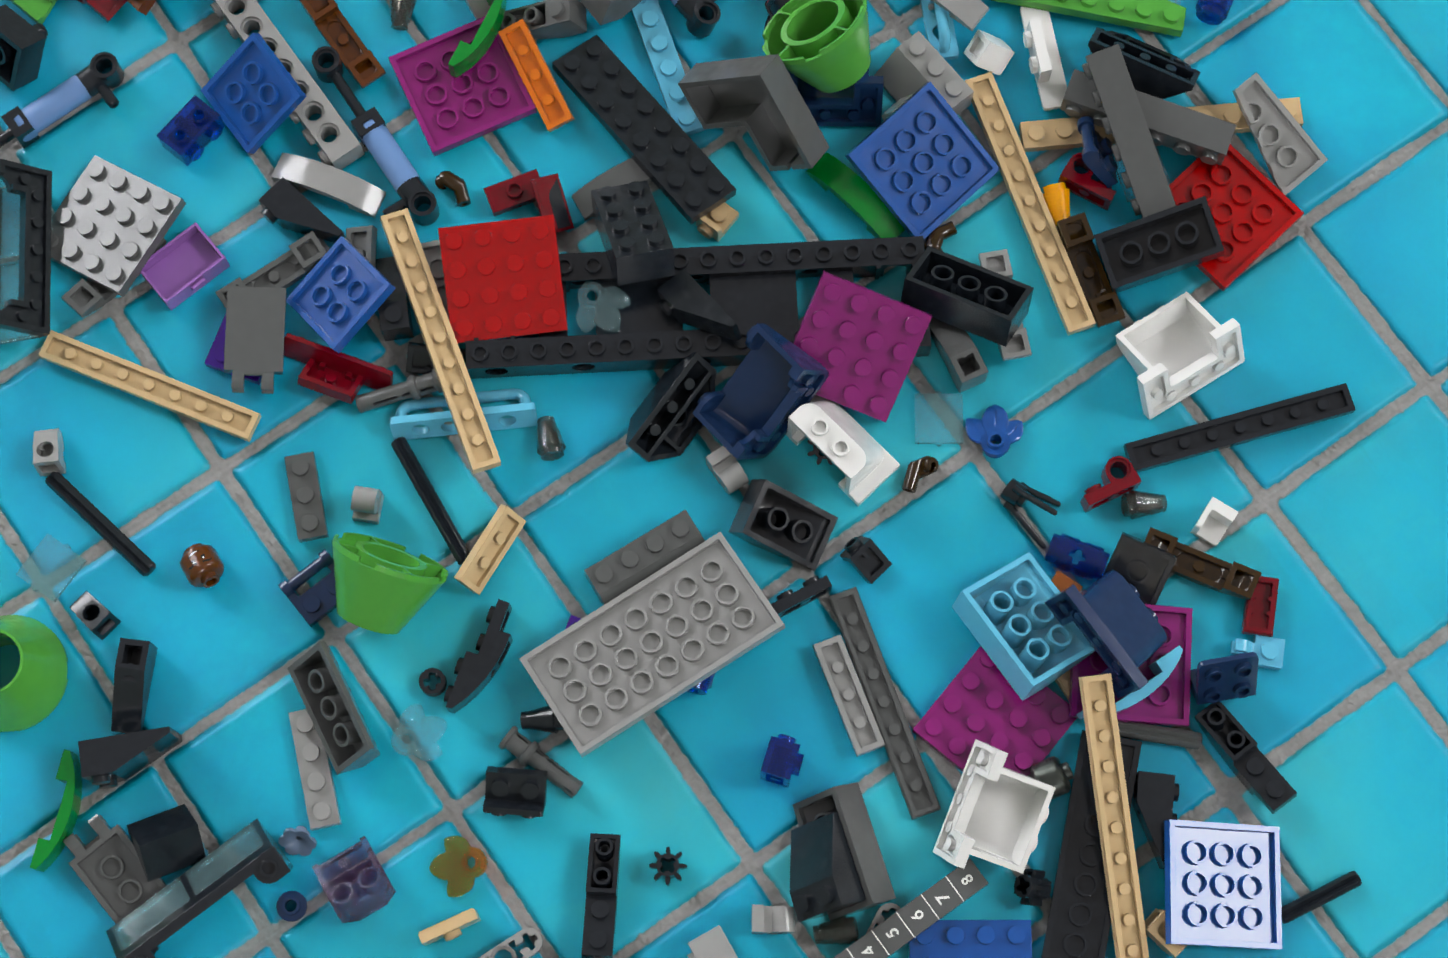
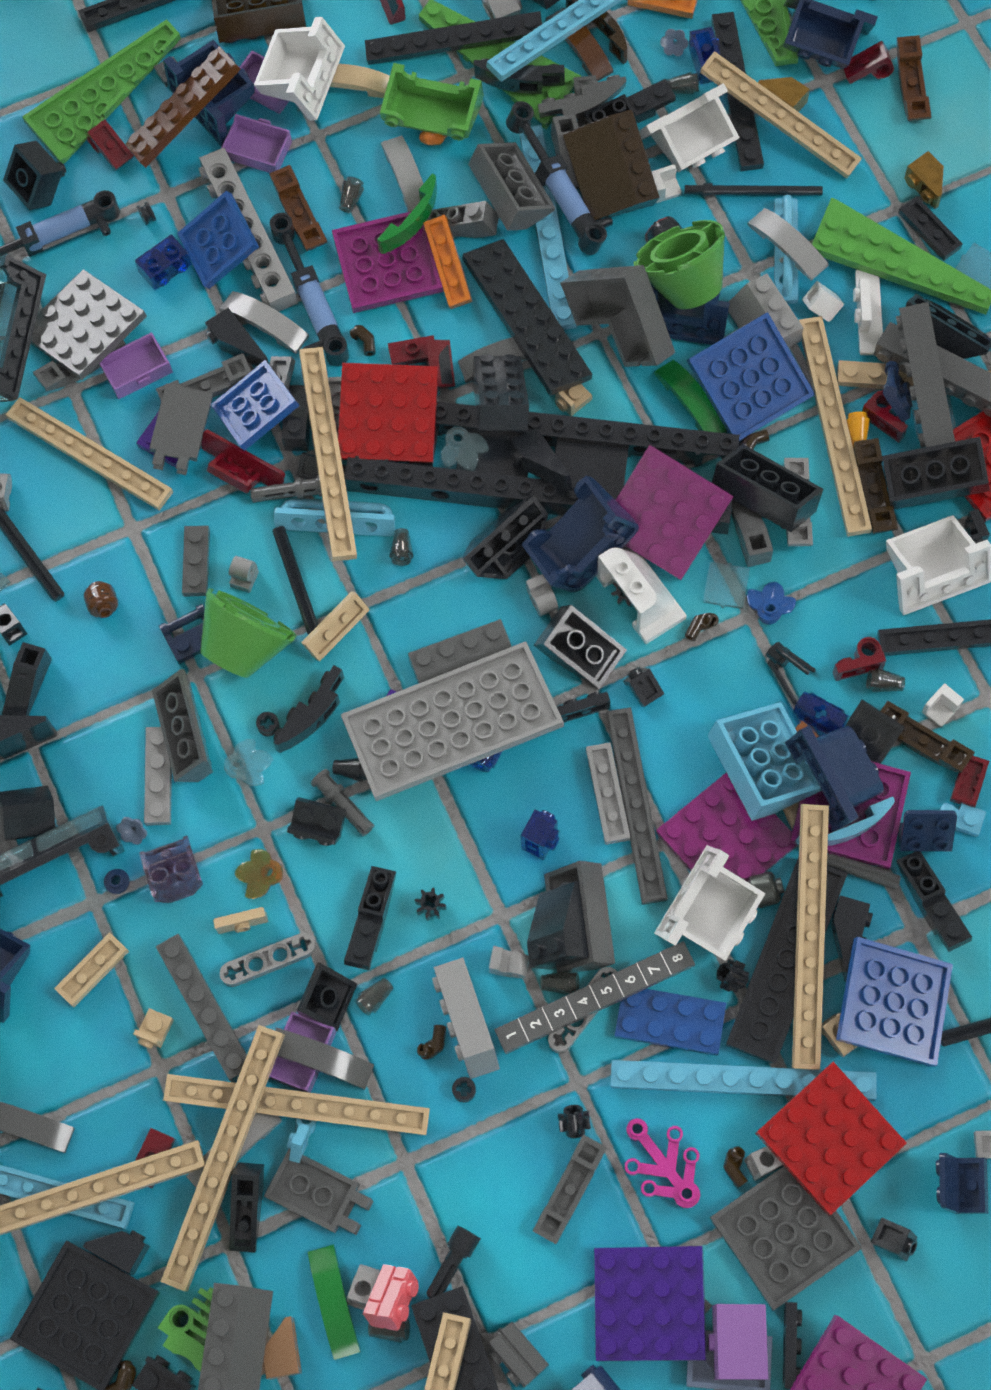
camera: 15 degrees right, 5 degrees down
(157, 71) = (146, 213): none -> black bush
(1216, 302) = (976, 526): none -> black bracket

